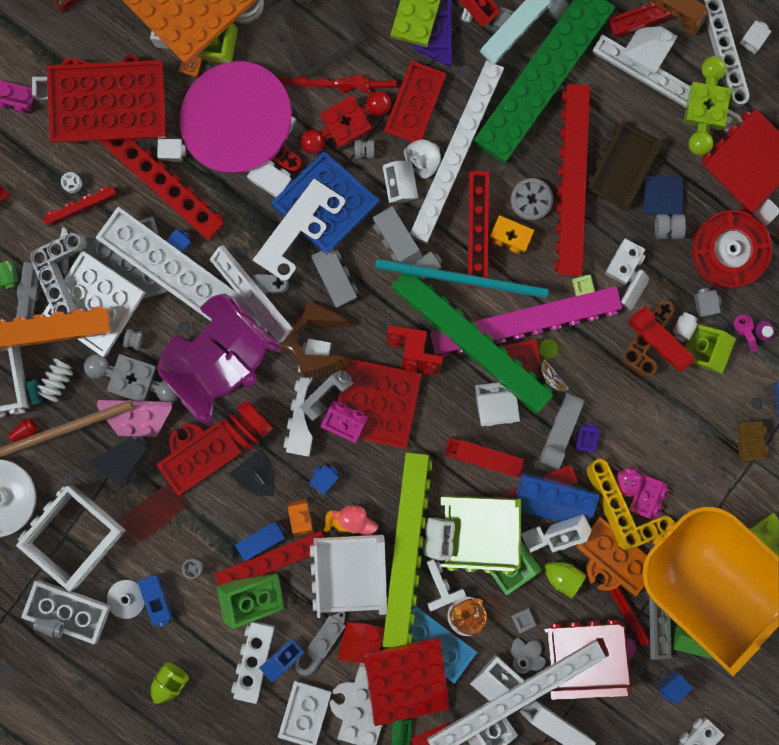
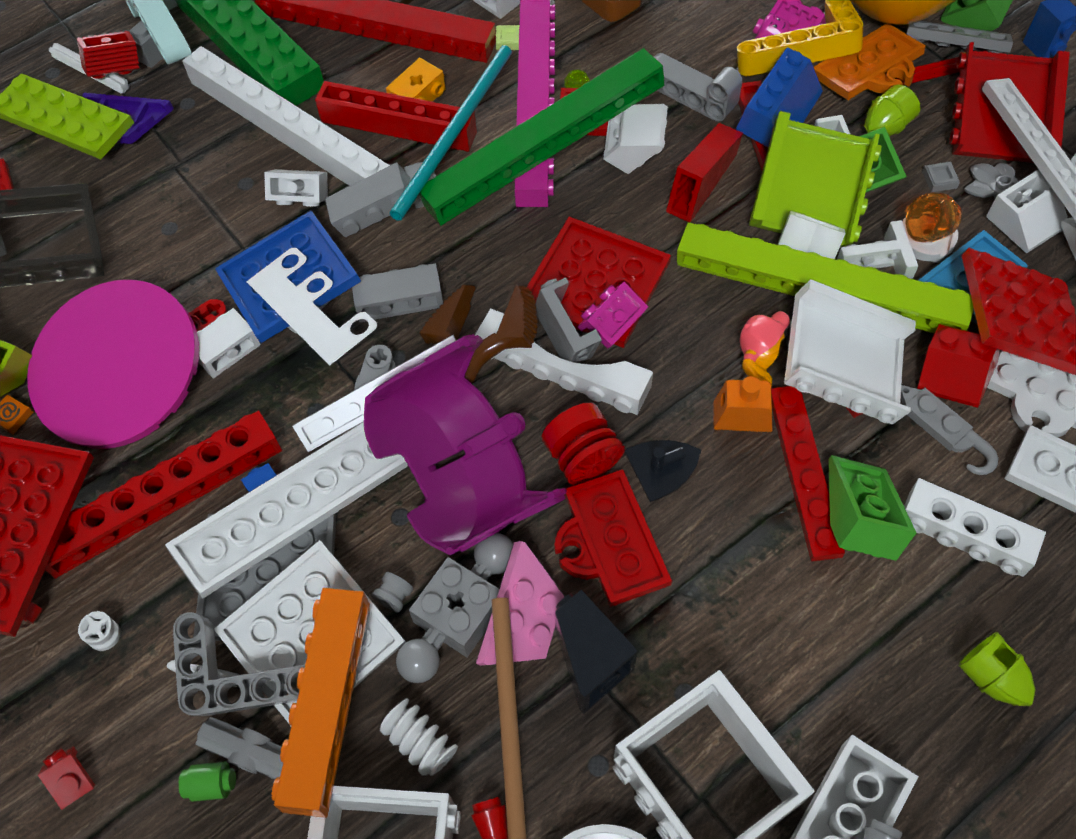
camera: 75 degrees left, 25 degrees down
(32, 388) = (433, 784): teal pin -> none
(72, 209) = (143, 638): red plate -> none
(132, 592) = (819, 723): white dish -> none
(153, 512) = (691, 631): clear red piece -> none
(155, 600) = (845, 660): blue brick -> none
(171, 150) = (118, 464): white brick -> none
(192, 568) = (801, 580): light grey wheel -> none
(261, 540) = (771, 474): blue brick -> none
(281, 660) = (977, 475): blue brick -> none
(324, 478) = (691, 366): blue brick -> none
(343, 85) = (138, 225): red sword -> none
(348, 109) = (187, 233): red brick -> none
(360, 149) = (234, 222): light grey wheel -> none
(414, 357) = (533, 209): red bracket -> none
(415, 102) = (201, 156): red plate -> none
(424, 157) = (275, 150): white cylinder -> none
(520, 201) = (379, 63): light grey wheel -> none
(567, 533) = (830, 90): white brick -> none
(587, 438) = (705, 61): dark purple bracket -> none

